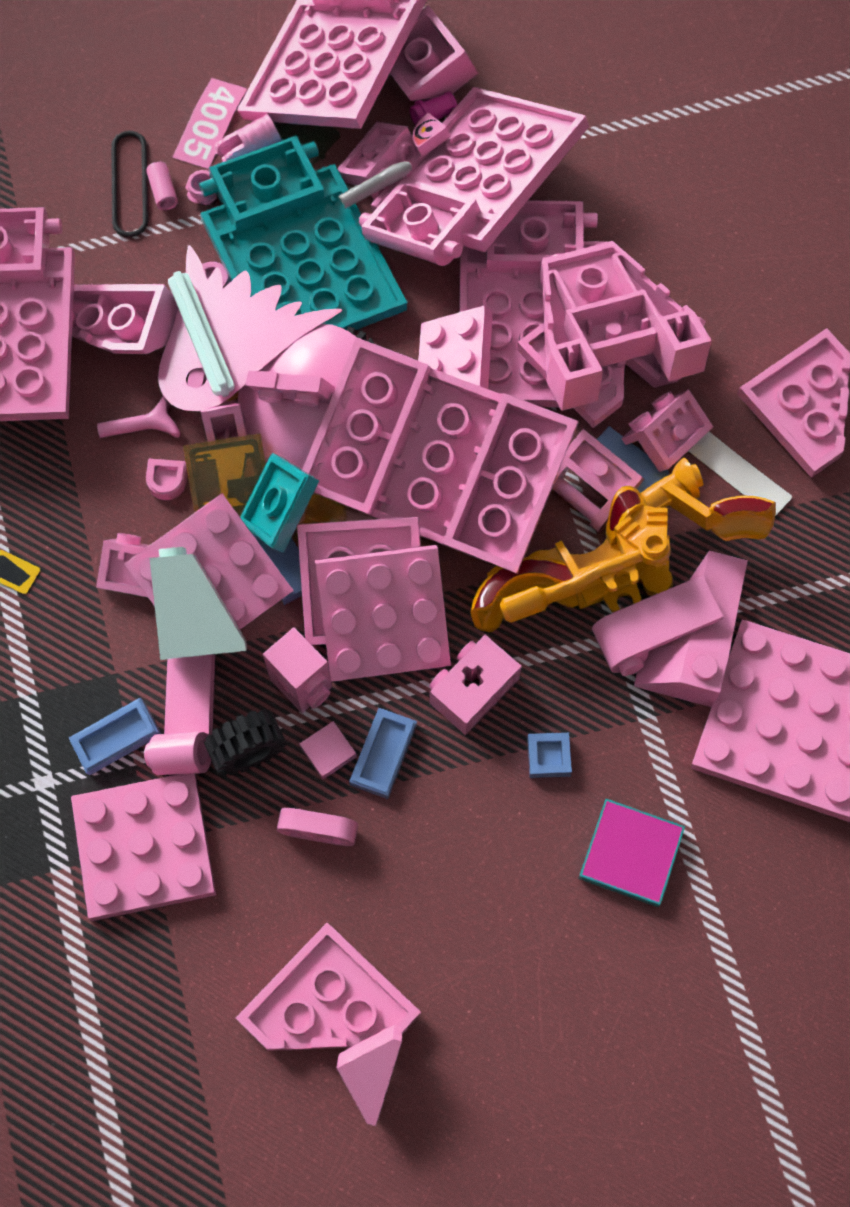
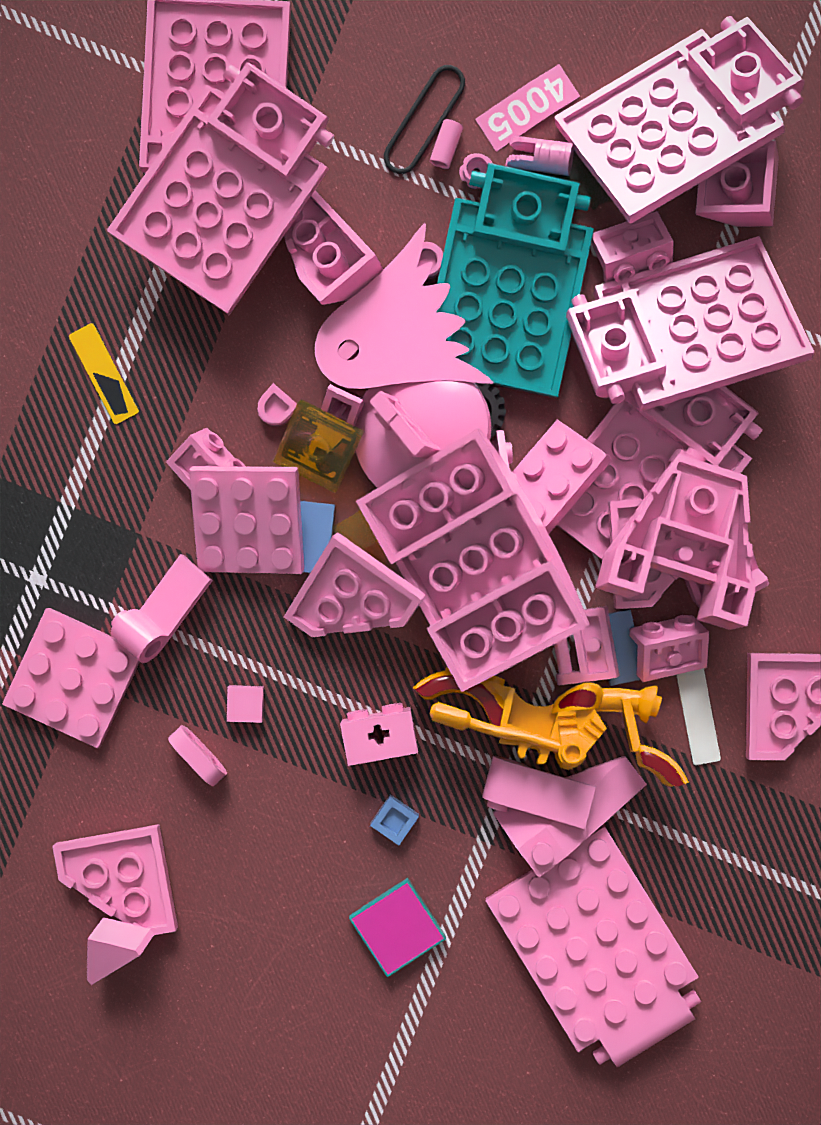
camera: 35 degrees right, 20 degrees up
(114, 736) = (105, 585): medium blue tile -> none
(156, 419) = (300, 351): bright pink piece -> none
(189, 609) = (208, 553): light aqua slope -> none
(201, 334) = (375, 317): light aqua axle -> none
(245, 742) = (186, 665): black tyre -> none
(278, 502) = (335, 503): teal tile -> none
(298, 671) = (259, 642): bright pink brick -> none
(383, 613) = (351, 641): bright pink plate -> none
(383, 753) = (282, 733): medium blue tile -> none
(387, 177) = (628, 278): light grey piece -> none
(429, 134) = (686, 258): bright pink tile -> none
(438, 107) = (711, 232): dark pink pin -> none

